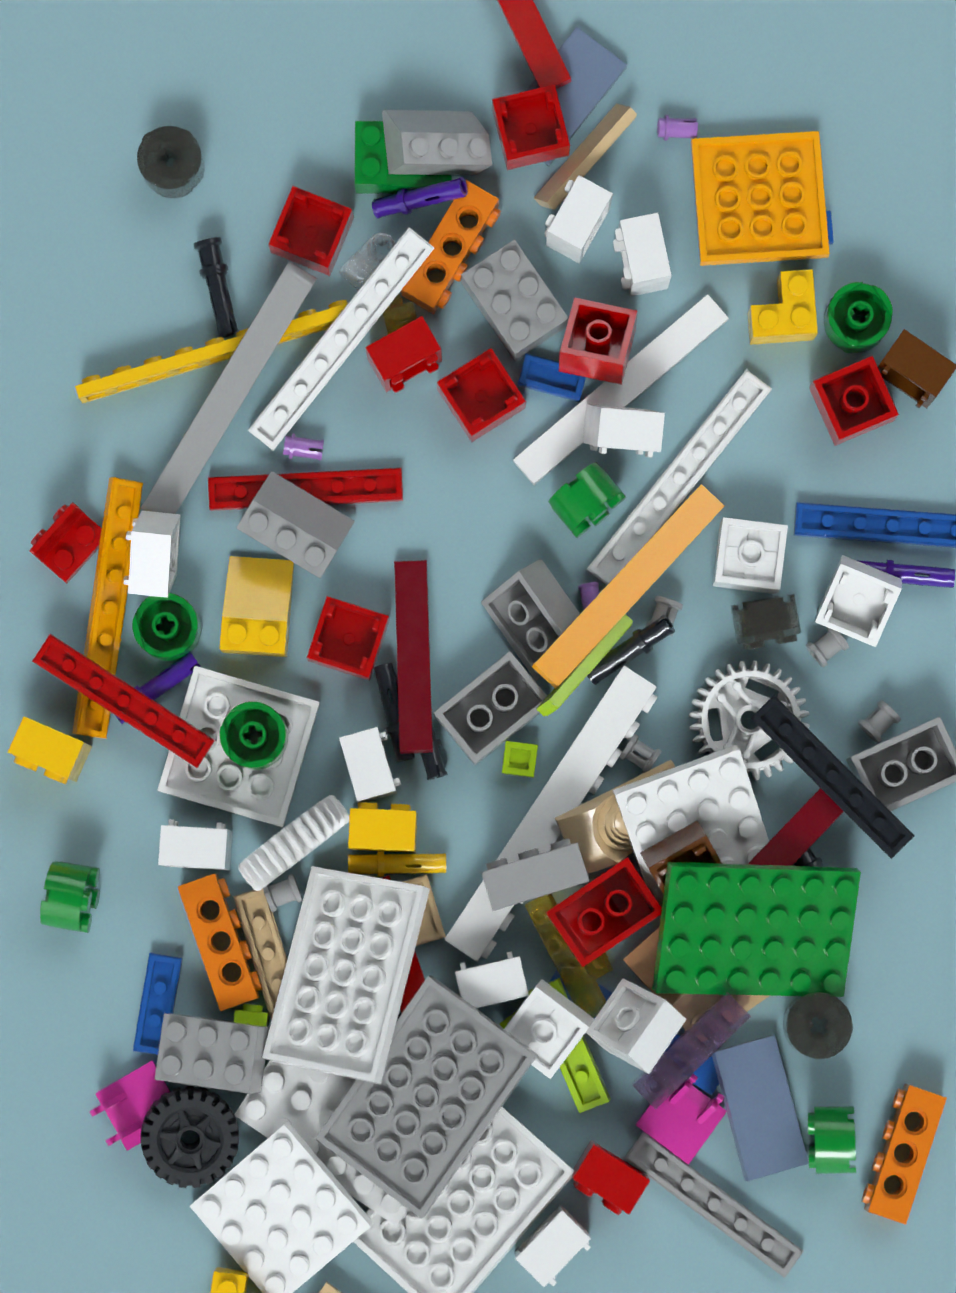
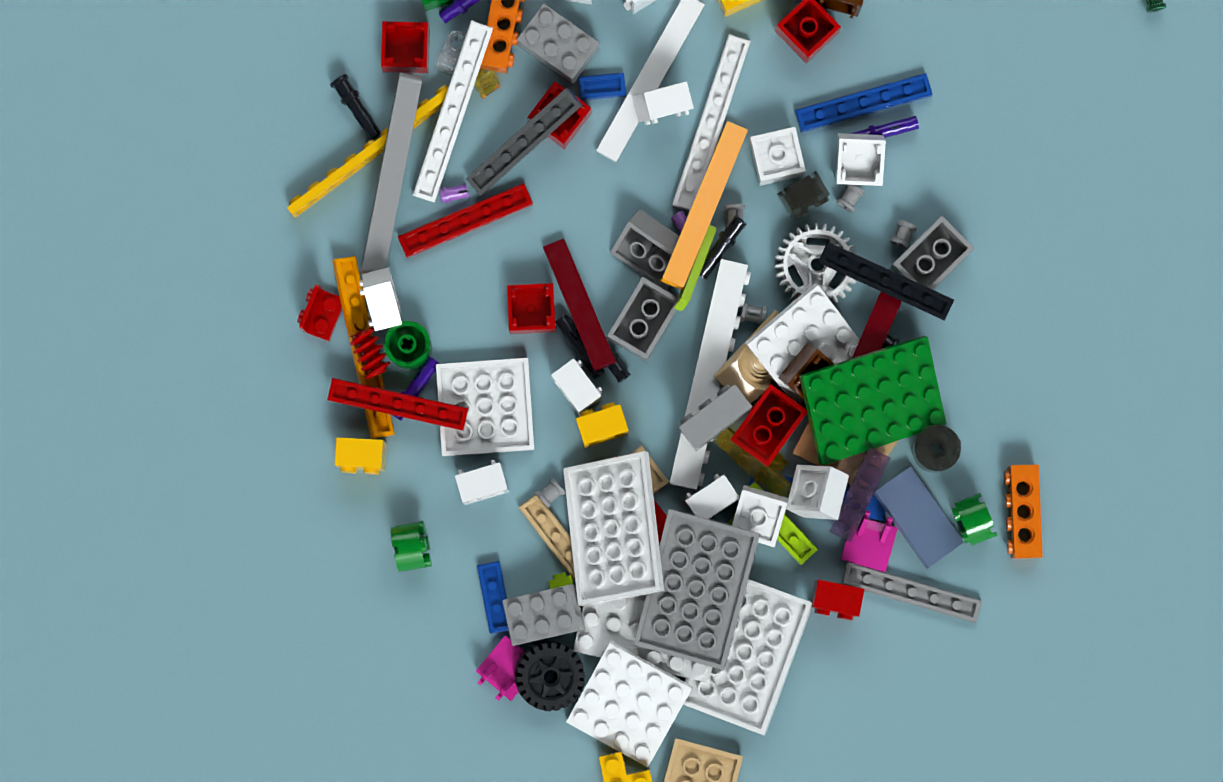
camera: 20 degrees left, 0 degrees up
(111, 619) = (369, 353): none -> red piece
(186, 170) = (282, 39): clear smoke brick -> none
(194, 896) = (493, 516): orange brick -> none
(239, 724) = (481, 390): green brick -> none
(257, 606) = (462, 310): yellow slope -> none
(294, 842) = (547, 455): white gear -> none
(295, 524) = (468, 245): light grey slope -> none
(396, 863) = (617, 446): yellow pin -> none
(404, 354) = (498, 106): red container -> none
(420, 413) = (524, 141): none -> dark grey plate
(519, 759) = (674, 346): lime plate -> none
(552, 1246) = (816, 657): white container -> none
(586, 499) = (655, 158): green brick -> none
(597, 341) = (624, 50): red brick -> none

